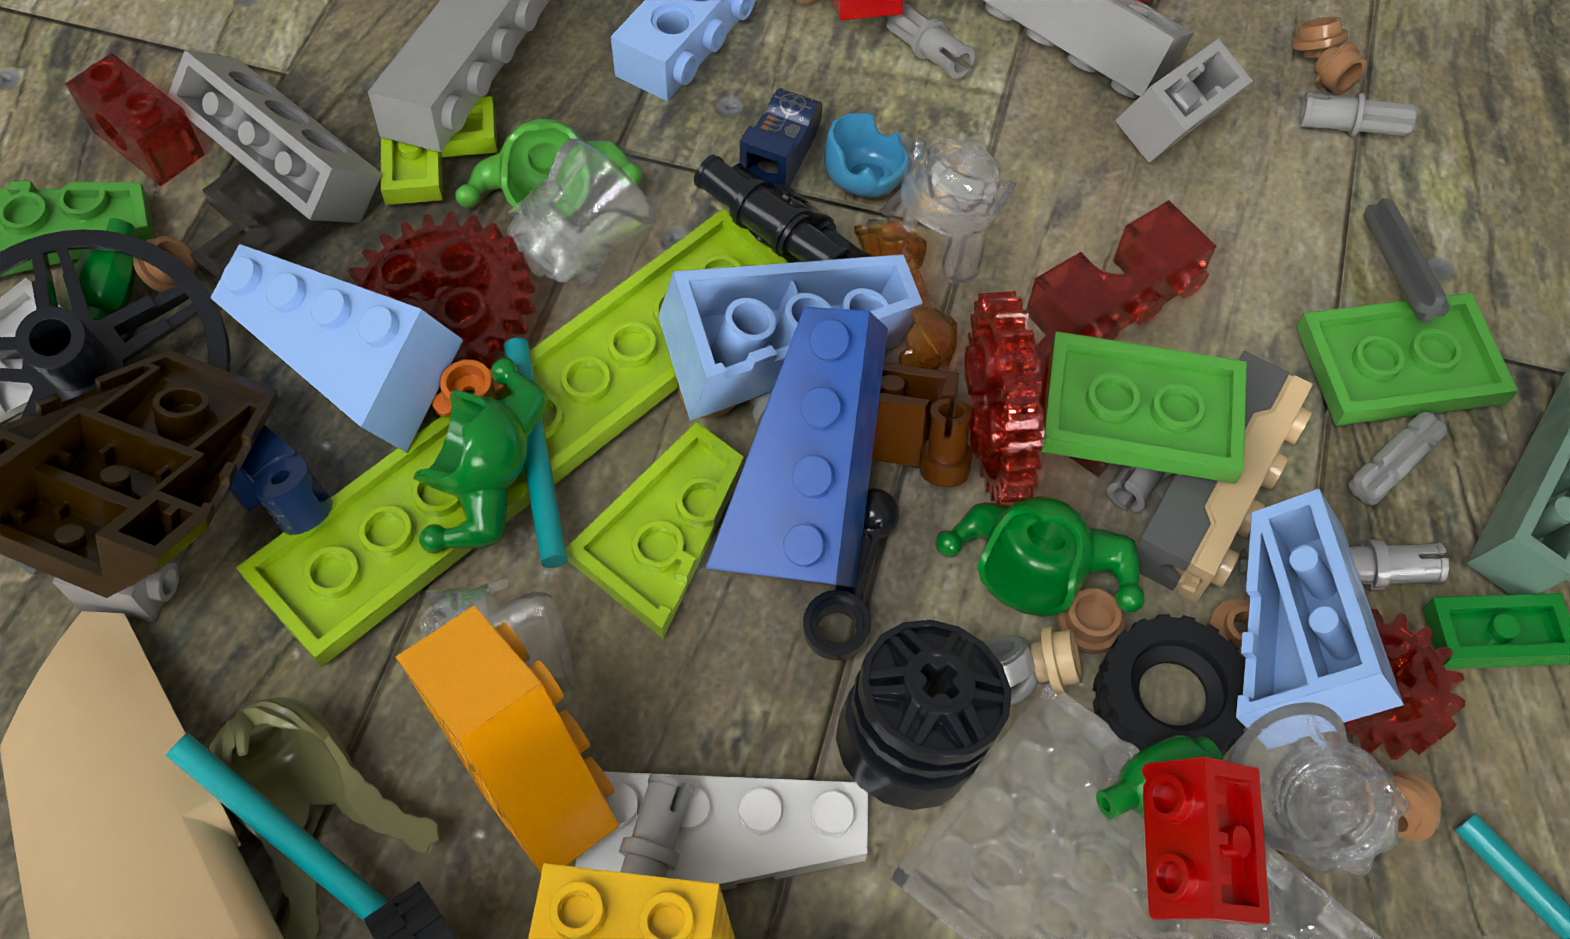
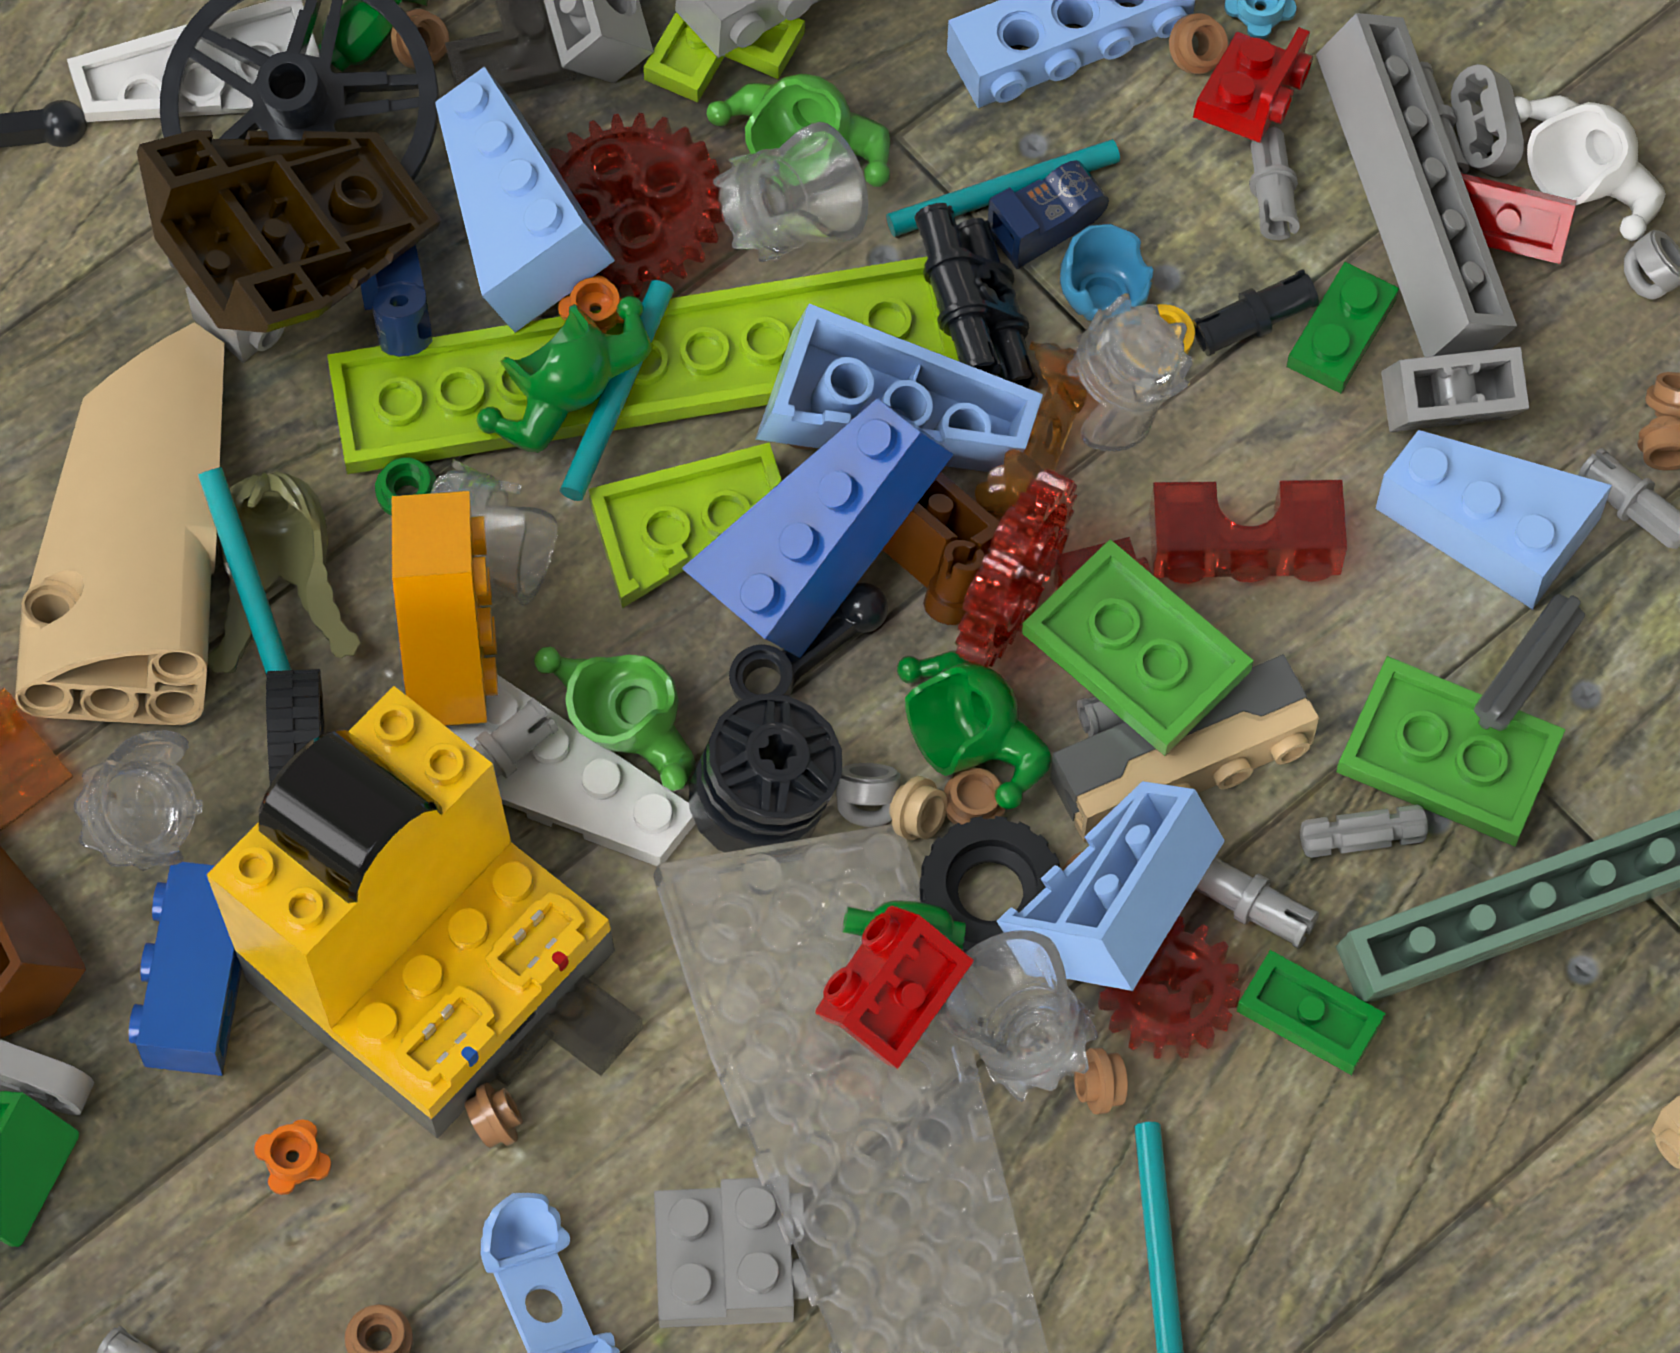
camera: 35 degrees right, 5 degrees up
(376, 635) = (402, 473): none -> green plate
(726, 147) = (978, 195): none -> teal bar
(739, 729) = (625, 707): none -> bright green piece
(994, 124) = (1255, 312): none -> black pin
(1056, 111) = (1342, 327): none -> green plate
(1280, 171) = (1492, 511): none -> light blue wedge

